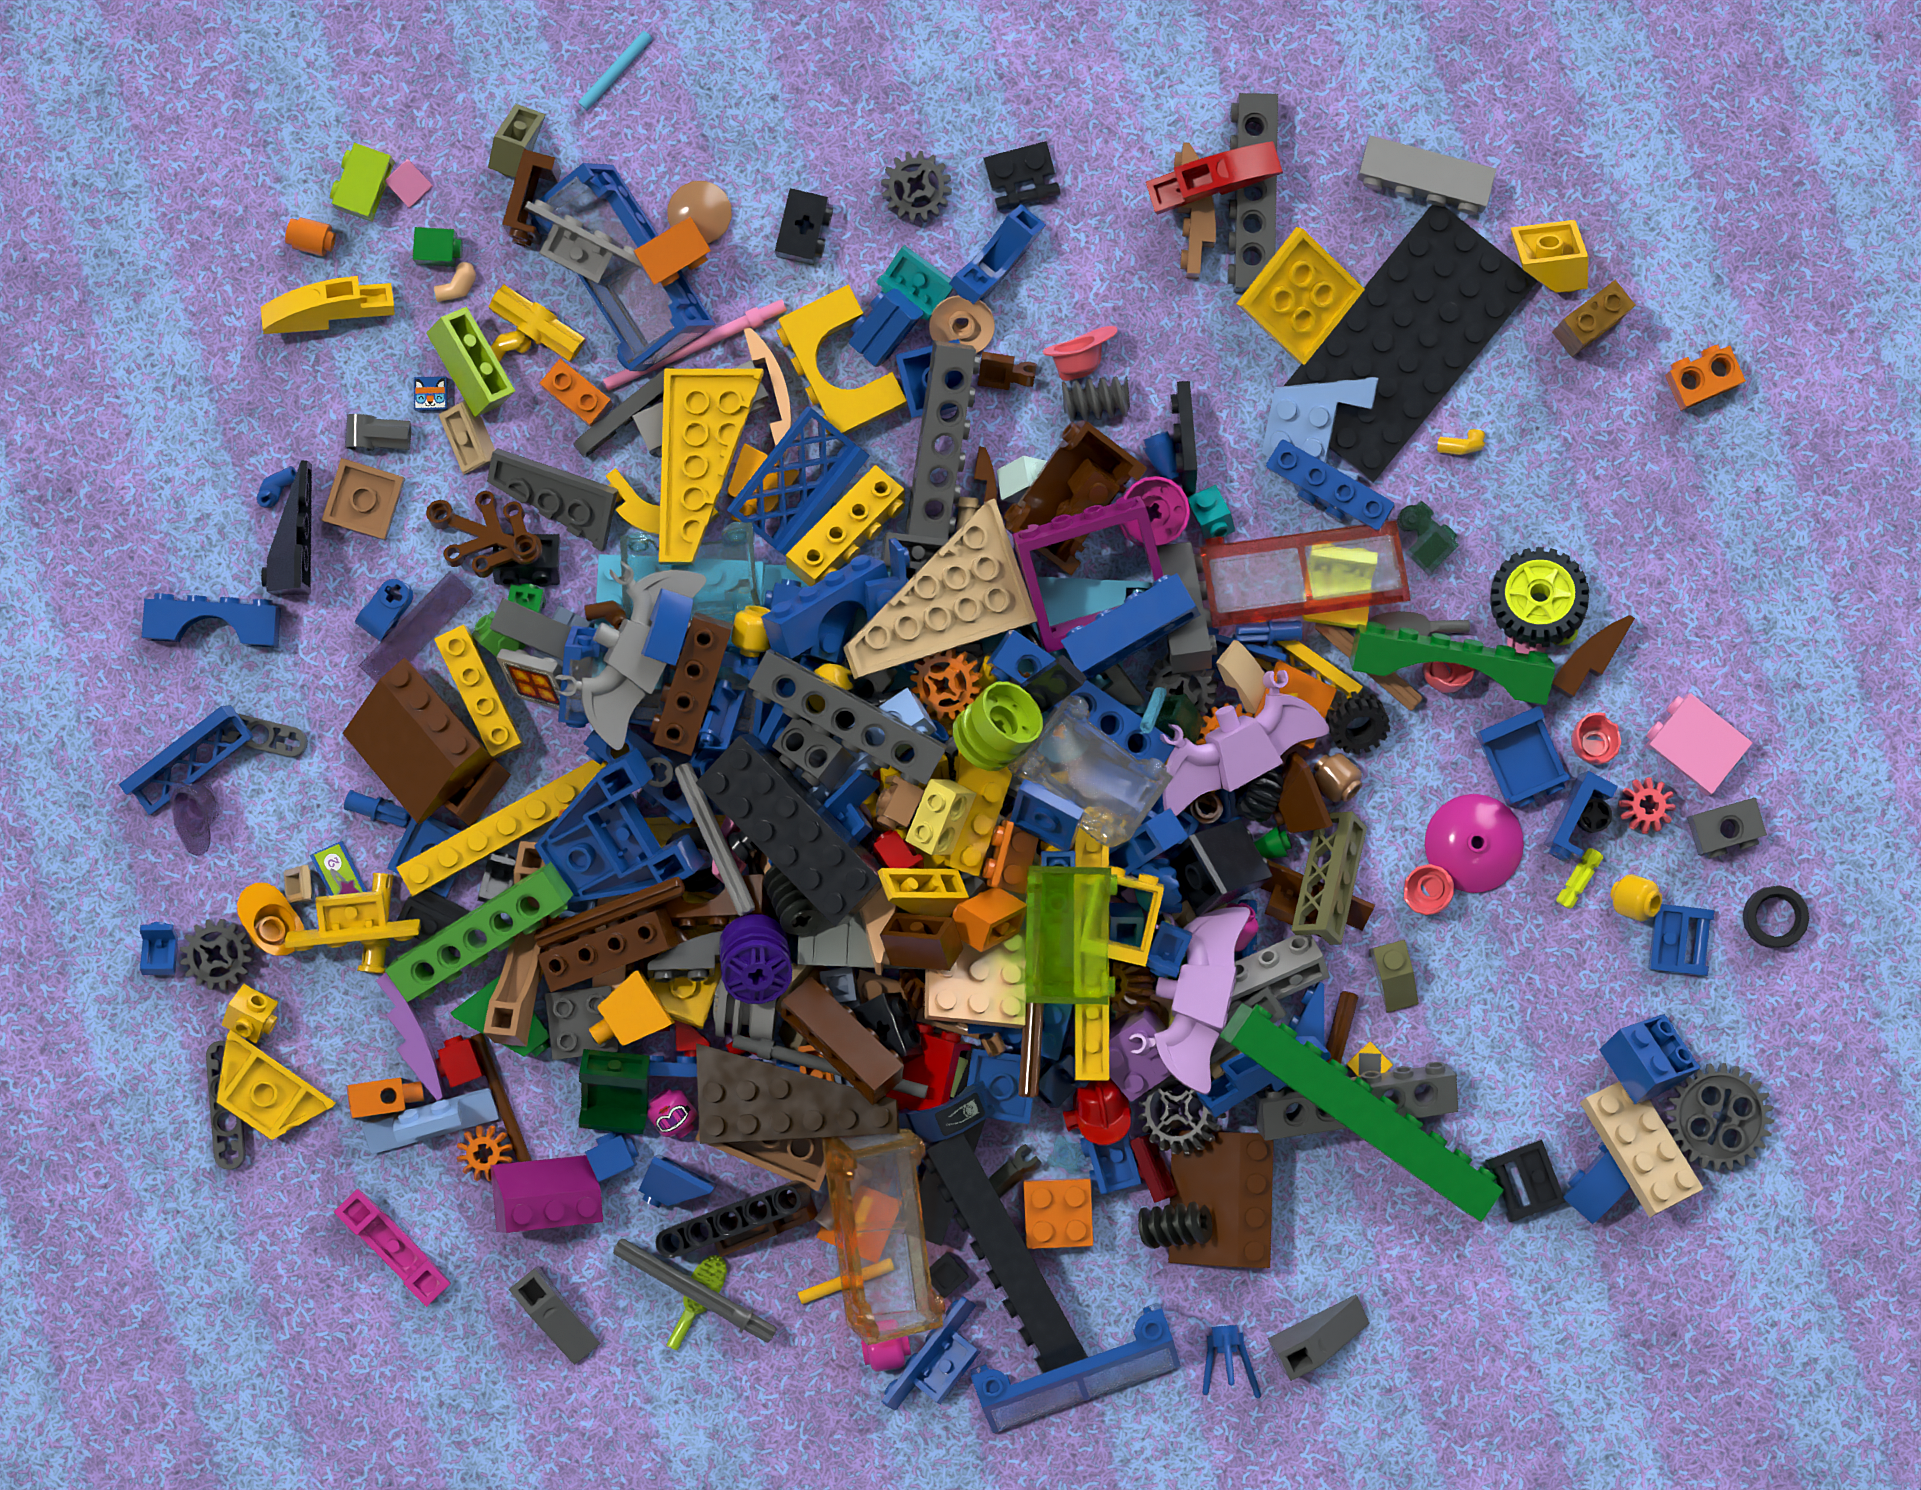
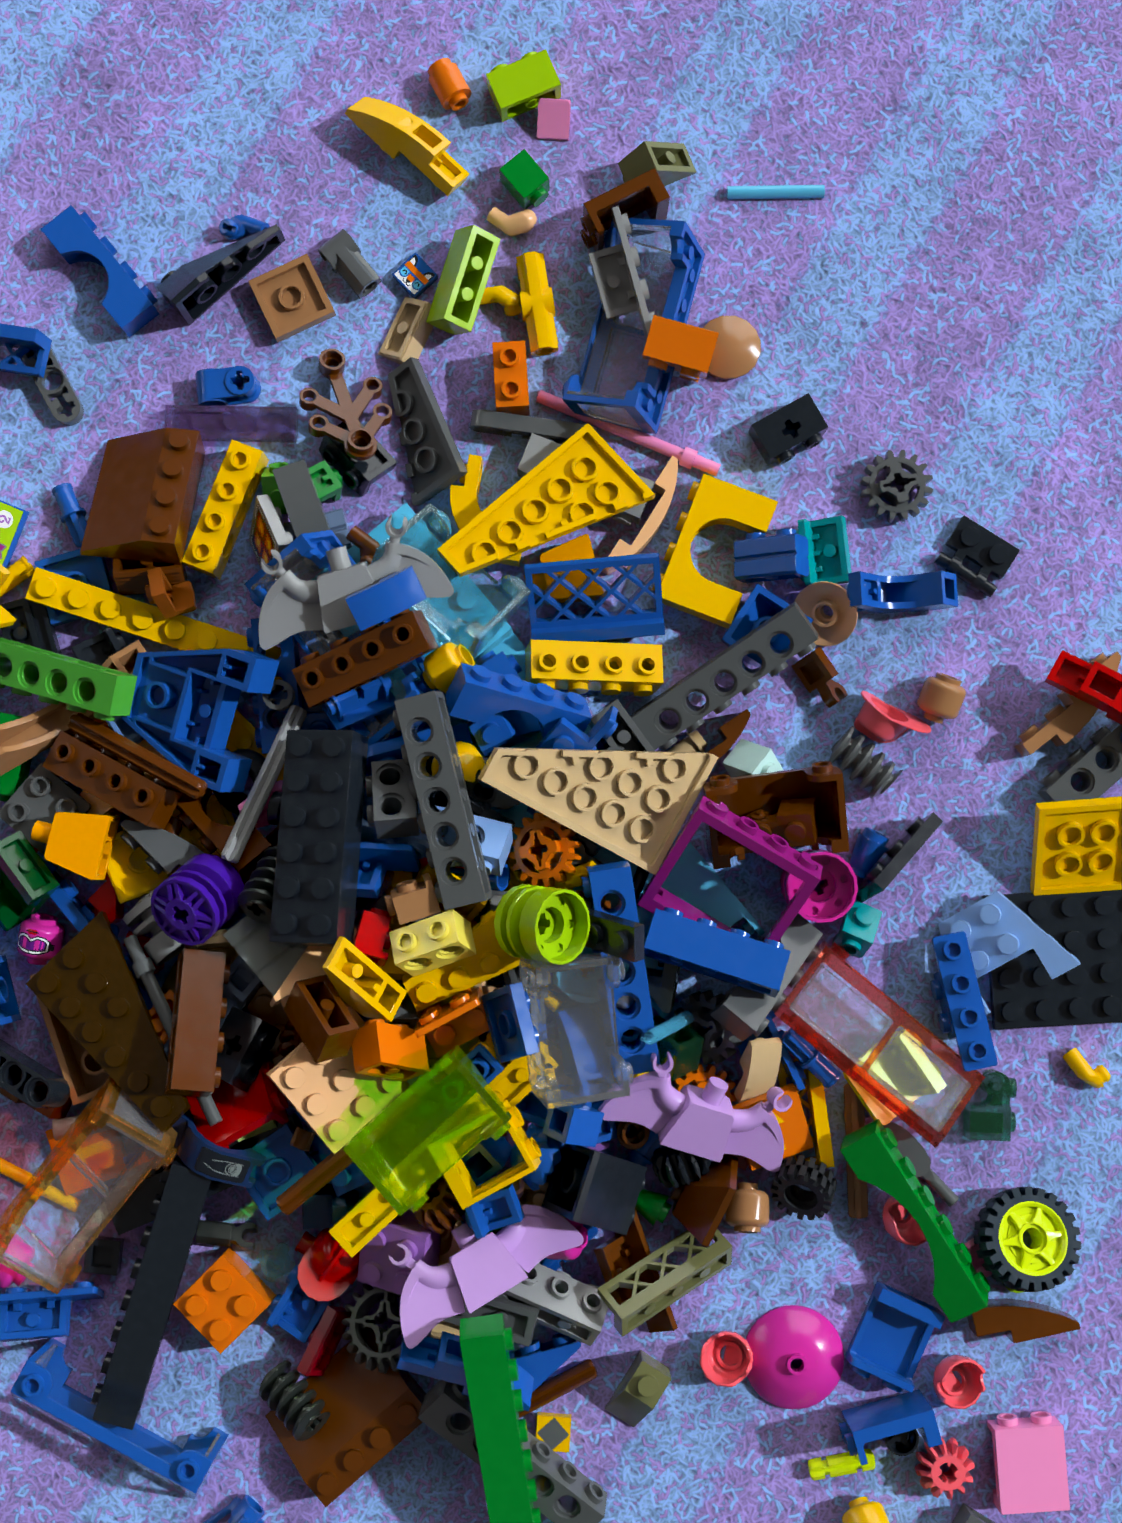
camera: 50 degrees right, 0 degrees up
(513, 787) = (169, 599): none -> dark orange bracket
(1100, 298) = (941, 697): none -> medium nougat head

